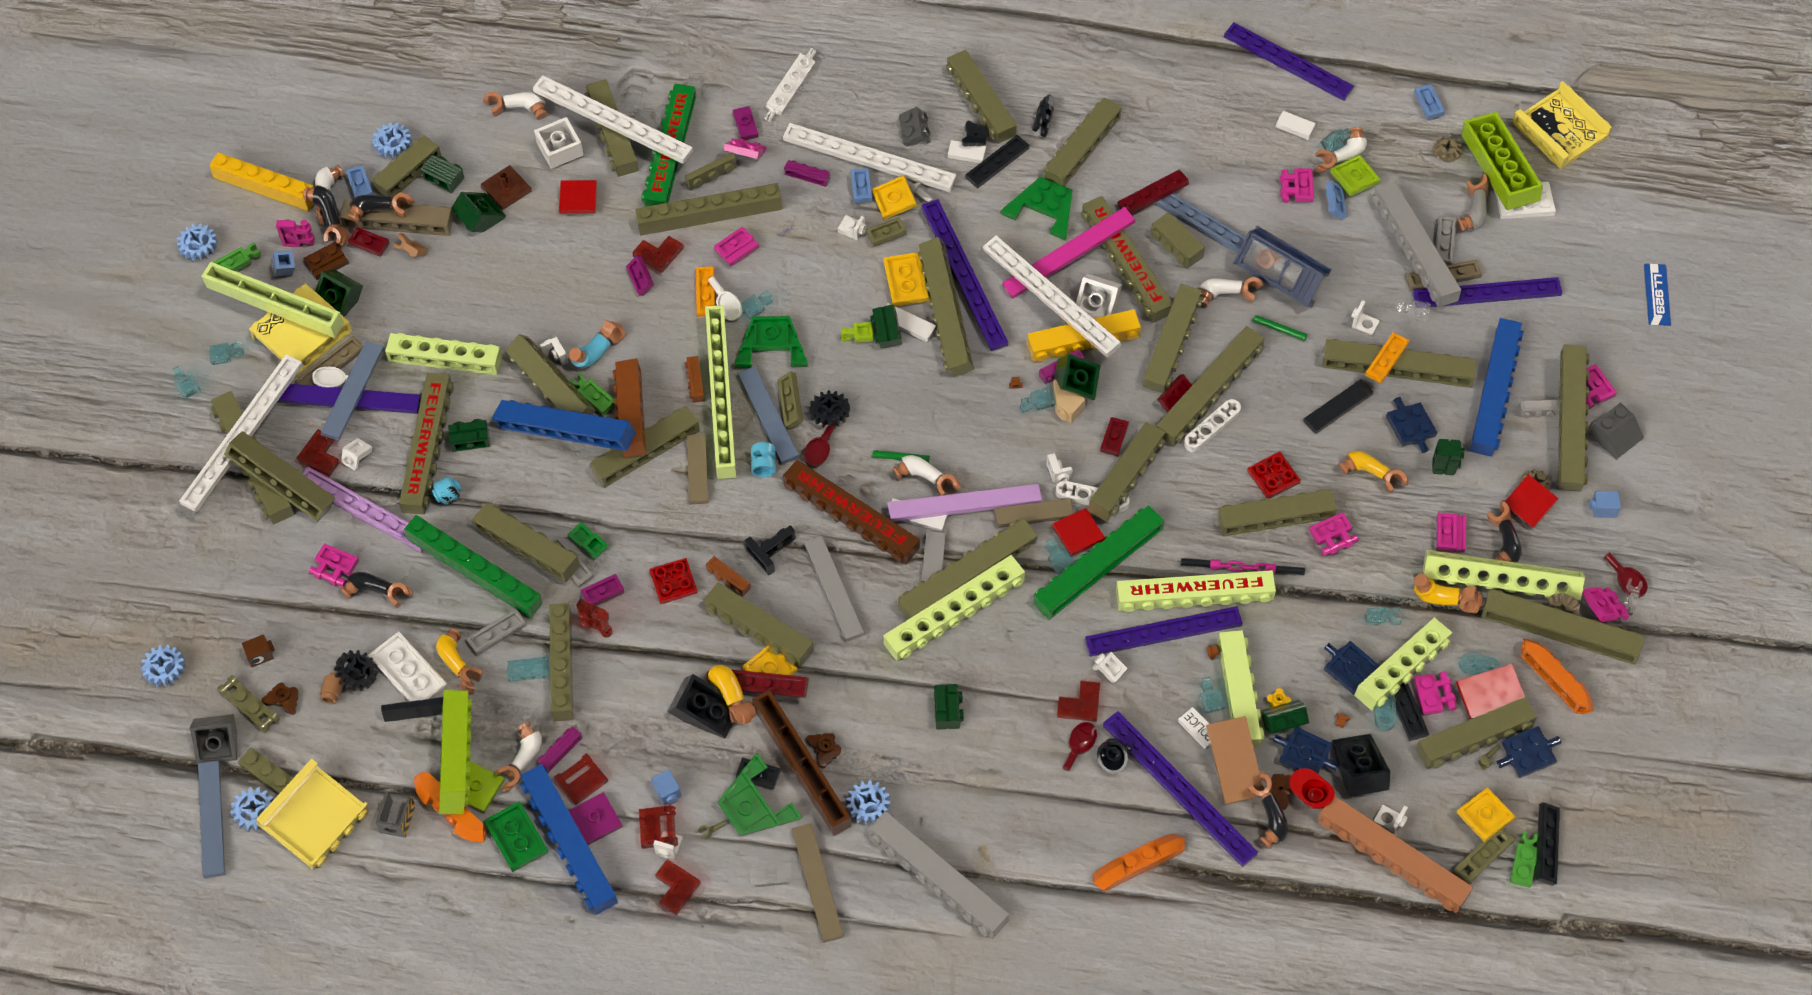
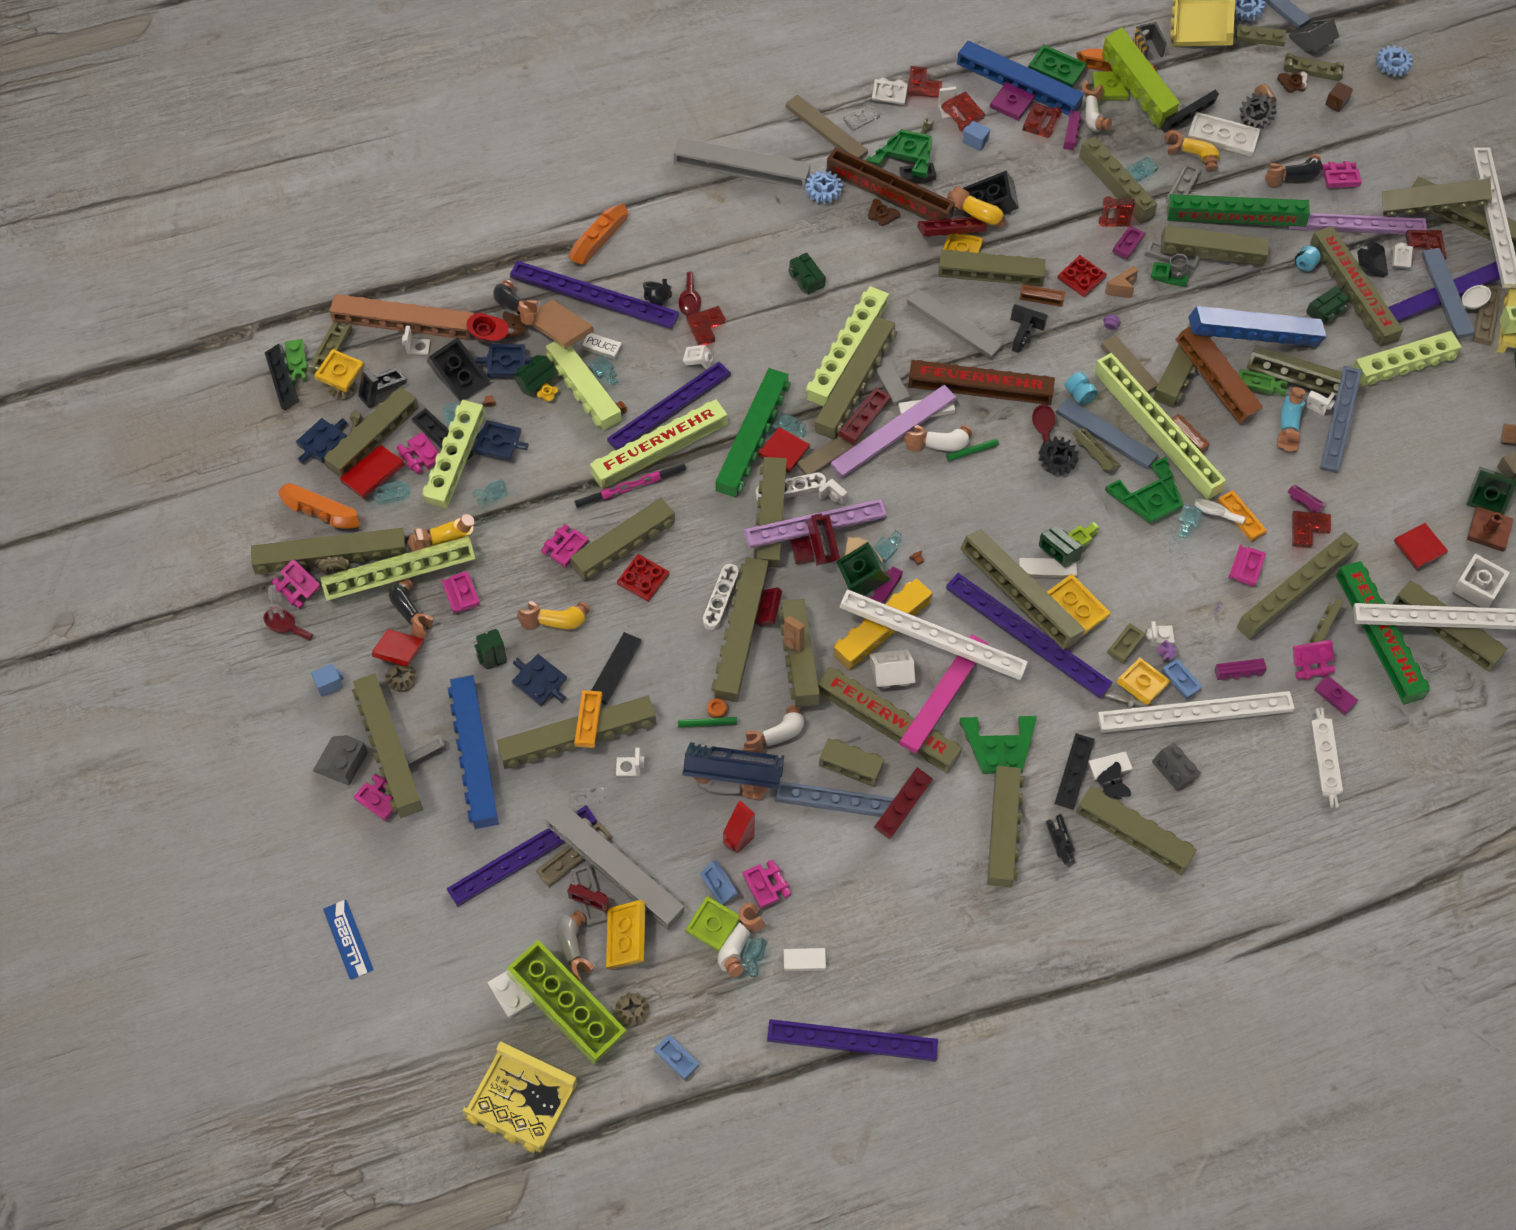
camera: 150 degrees right, 0 degrees up
(386, 457) = (1373, 258): none -> black tile
(555, 319) = (1341, 419): none -> sand blue tile
(578, 529) = (1179, 266): none -> flat silver wheel
(647, 549) = (1122, 284): none -> medium nougat slope
(683, 515) = (1111, 322): none -> medium lavender plate
(718, 893) = (889, 91): none -> white bracket
(857, 208) = (1166, 650): none -> medium lavender plate
(984, 525) = (864, 416): none -> dark red plate
(1094, 439) = (798, 528): none -> lavender tile
(1098, 417) = (823, 539): none -> dark red window
(1178, 329) = (794, 634): none -> medium nougat plate
(1268, 333) = (717, 708): none -> orange tile
(1300, 222) = (740, 828): none -> red slope
(1431, 191) = (625, 934): none -> yellow plate
(1446, 780) = (376, 384): none -> black bracket
(1449, 227) = (583, 895): none -> dark red plate

